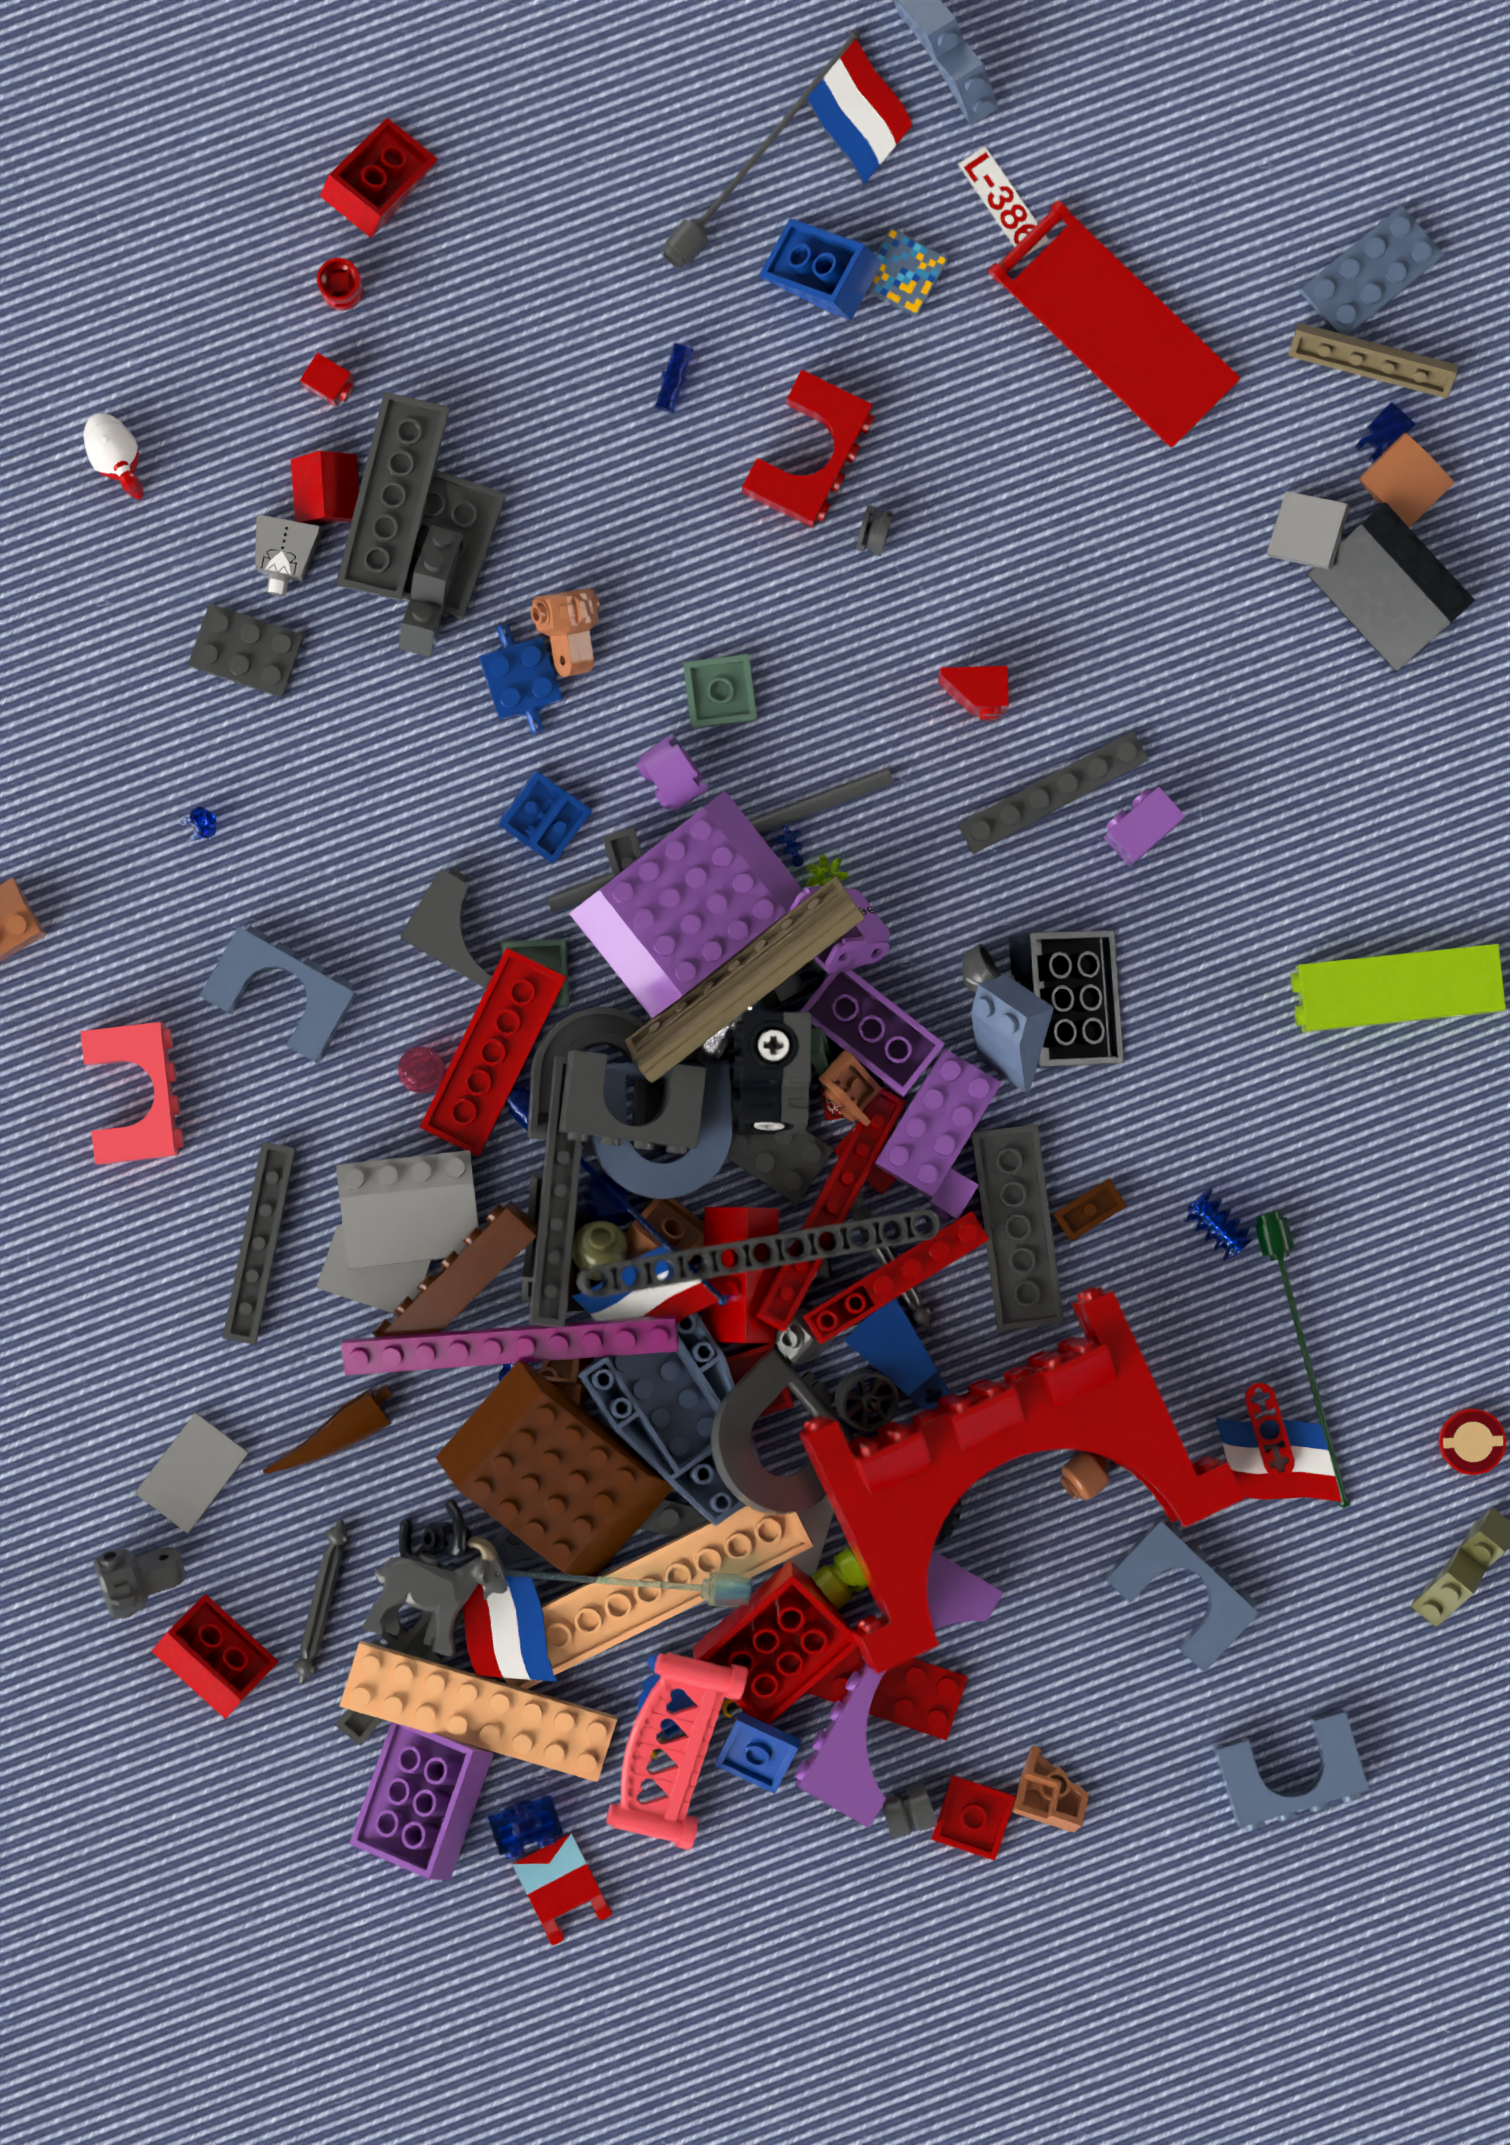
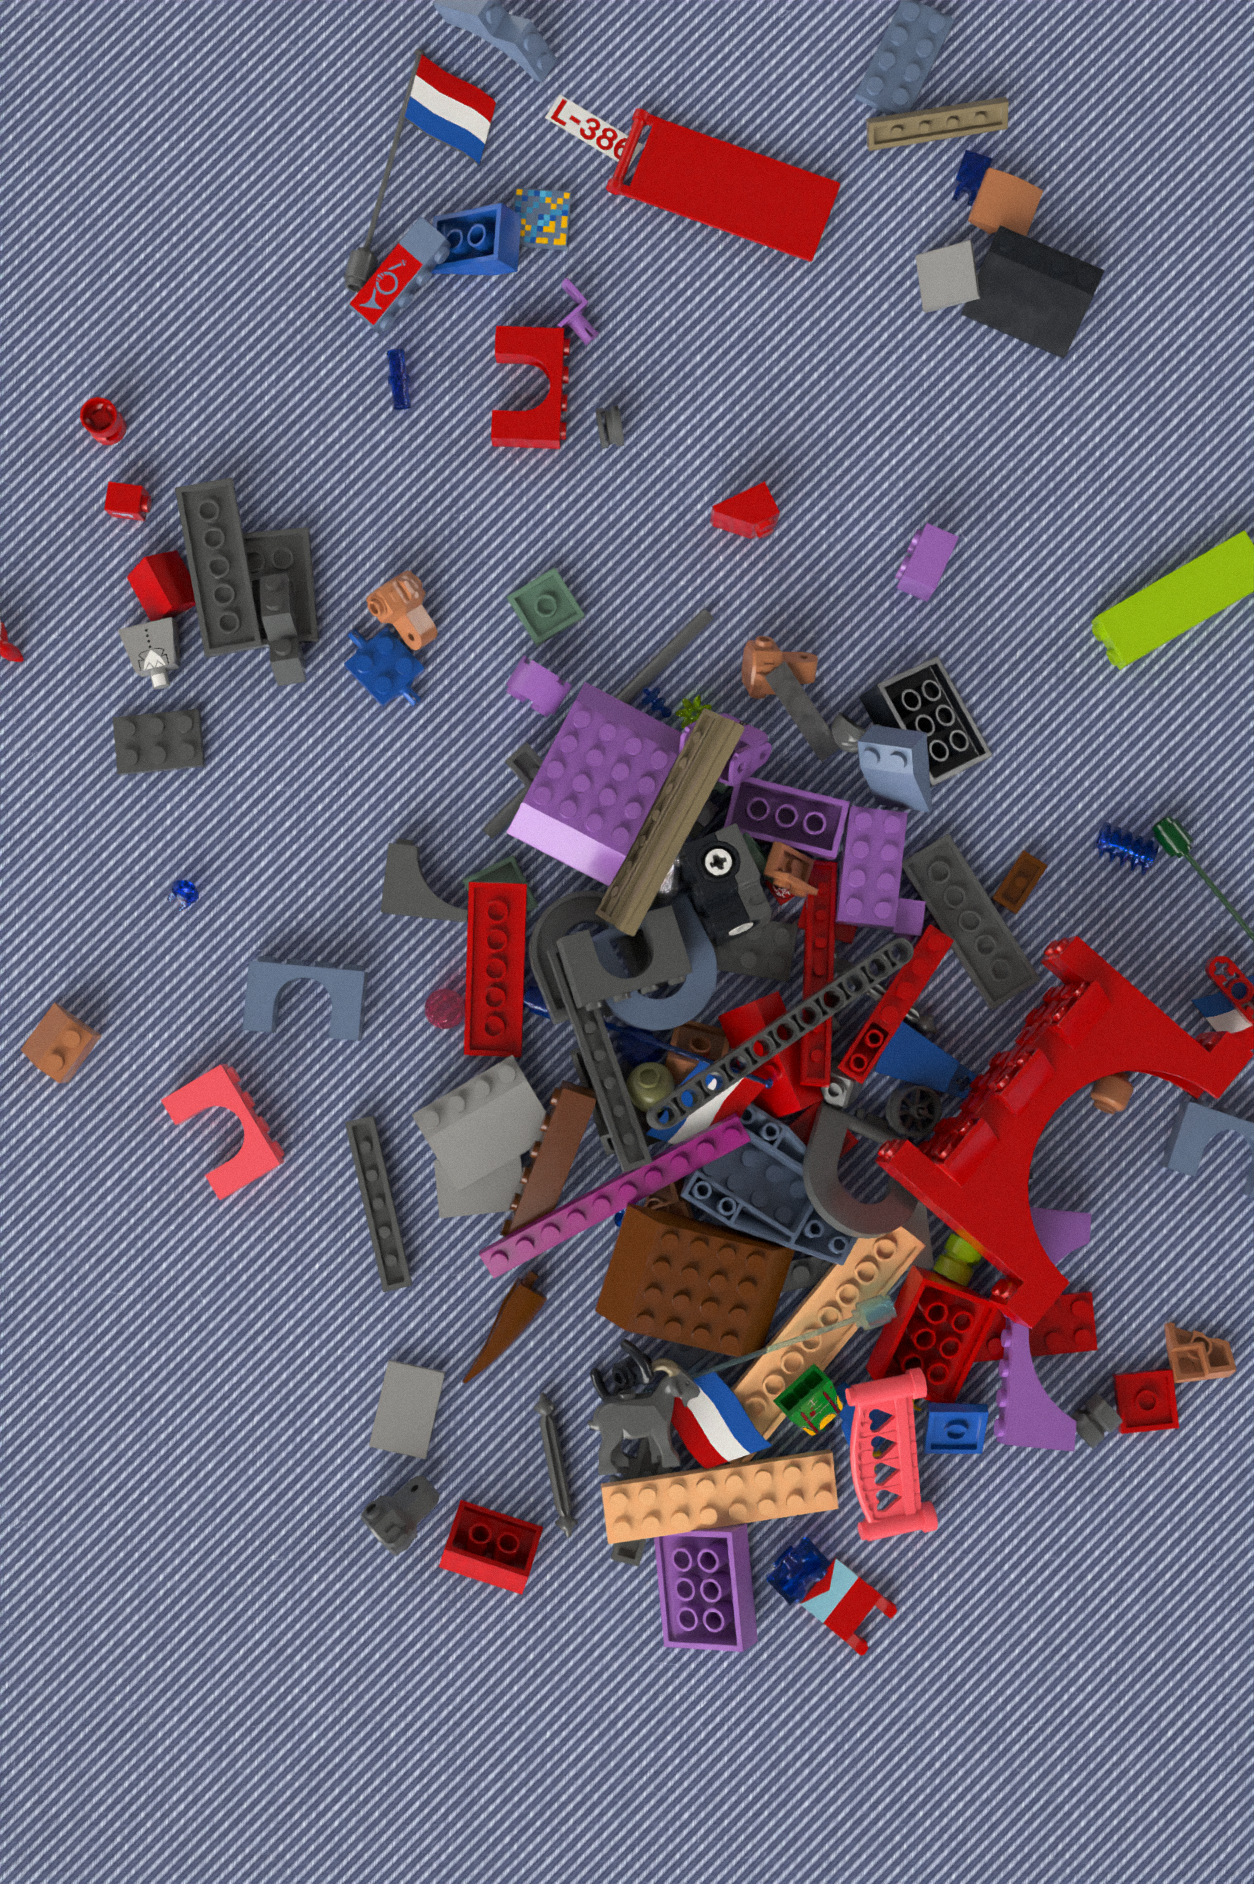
camera: 25 degrees left, 0 degrees up
(377, 177) = (95, 326): red slope -> none
(544, 817) = (452, 767): blue slope -> none
(618, 1655) = (811, 1401): none -> green torso
(723, 270) = (400, 275): none -> brick
(891, 399) = (575, 318): none -> medium lavender bracket
(926, 864) = (763, 656): none -> nougat piece
(940, 925) = (802, 711): none -> flat silver sticker
(1053, 792) = (841, 570): dark grey plate -> none

